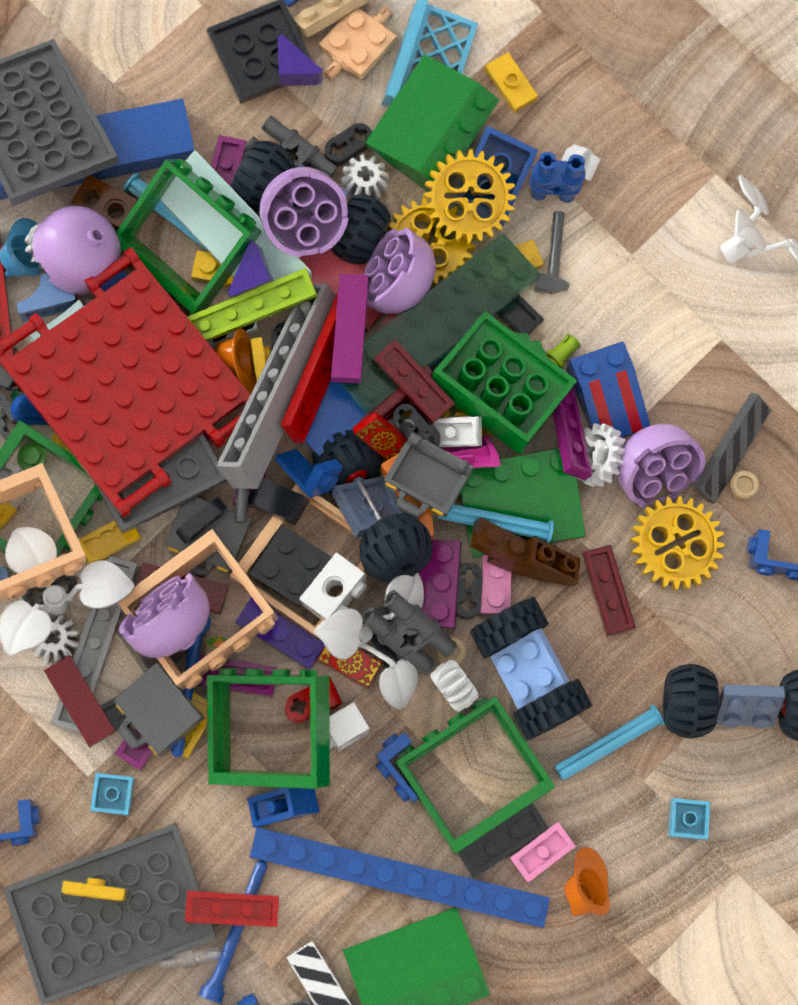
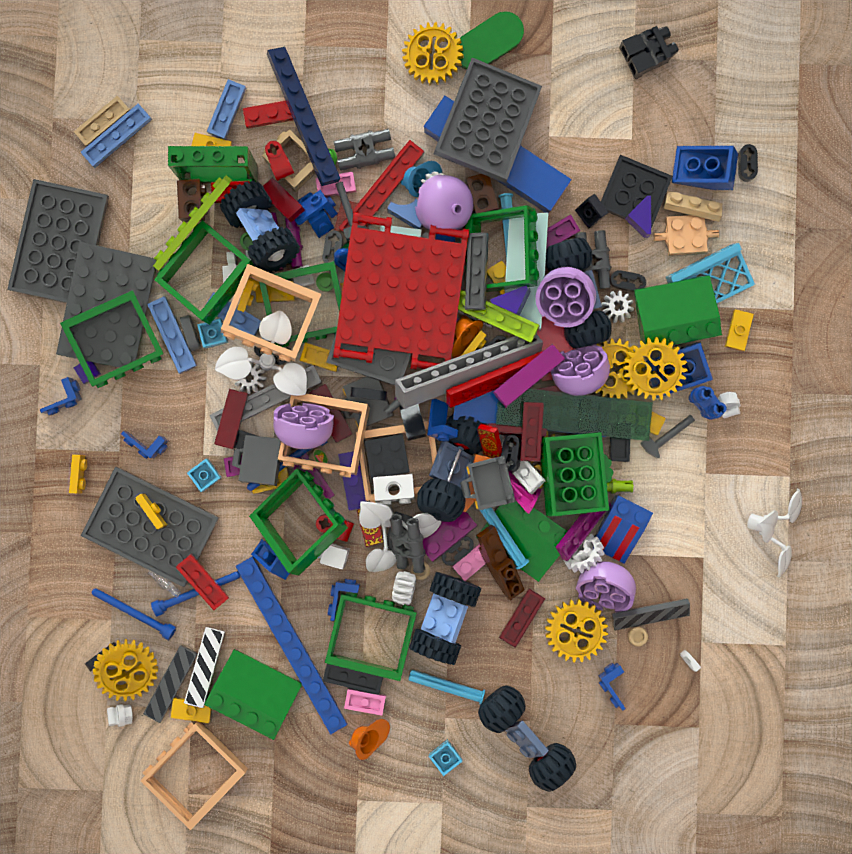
camera: 55 degrees right, 10 degrees up
(183, 281) = (476, 271): none -> dark grey tile
(237, 110) = (591, 211): none -> black piece

